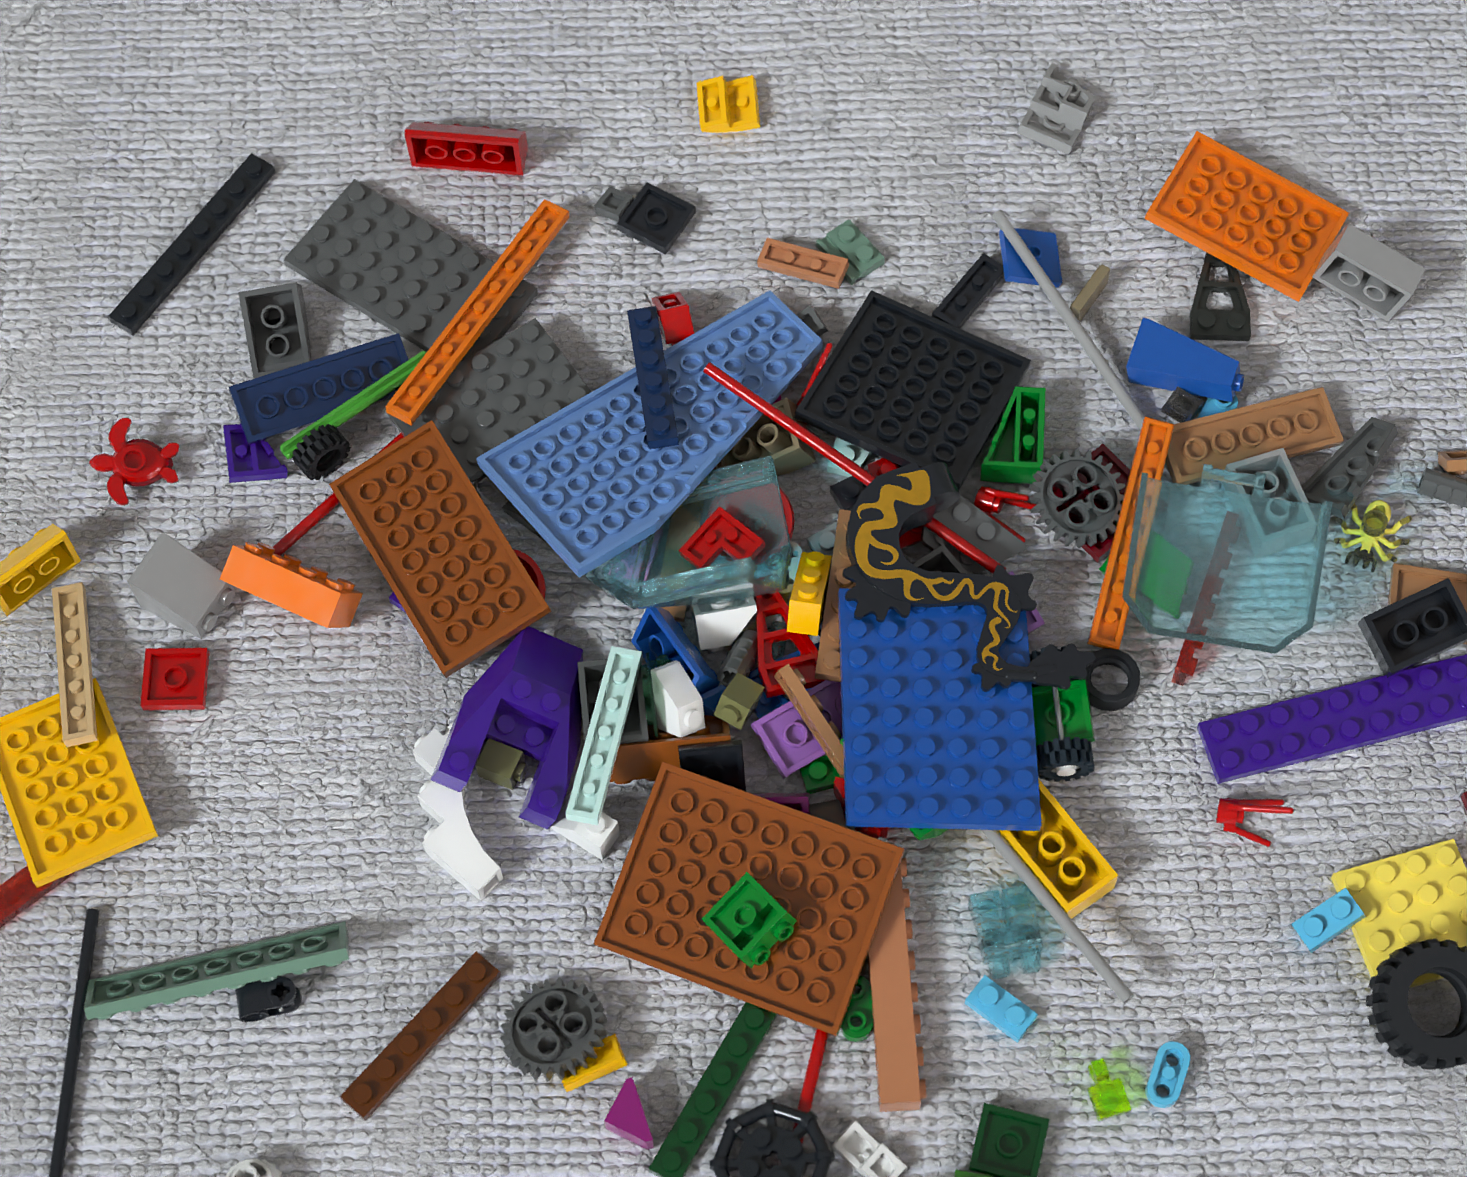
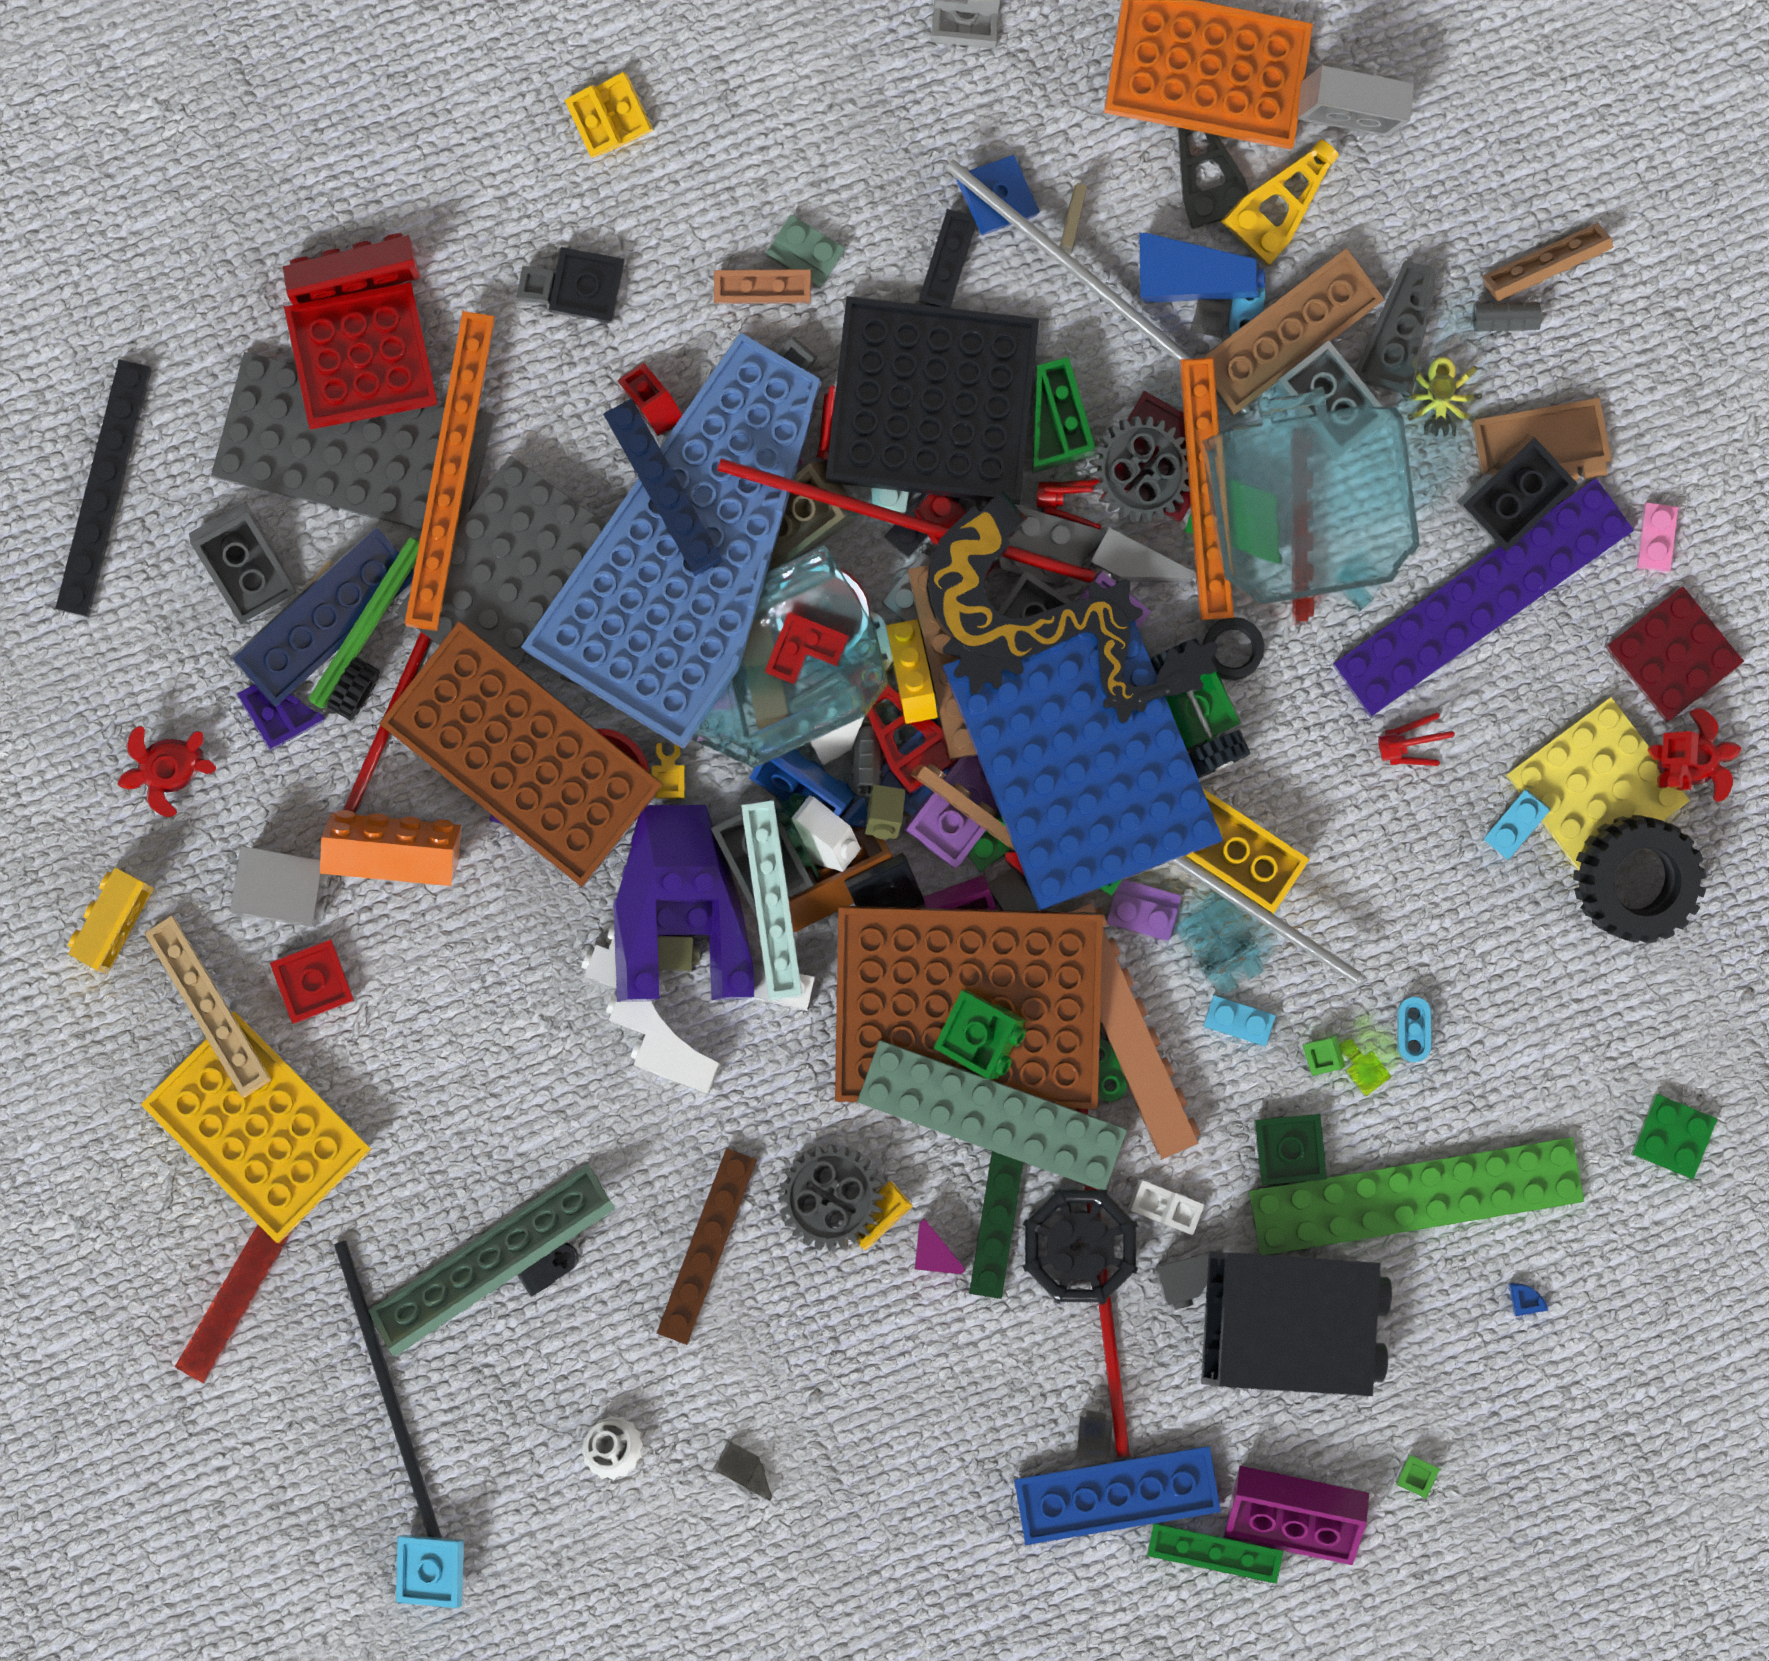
camera: 25 degrees left, 20 degrees up
(445, 207) = (360, 355): none -> red plate
(563, 617) = (669, 774): none -> yellow plate
(734, 1005) = (992, 1115): none -> sand green plate
(946, 877) = (1144, 910): none -> medium lavender plate
(1050, 579) = (1127, 559): none -> light grey slope
(1072, 1066) = (1324, 1055): none -> bright green plate
(1237, 667) = (1358, 597): none -> clear light blue pin
(1243, 346) = (1255, 229): none -> yellow plate

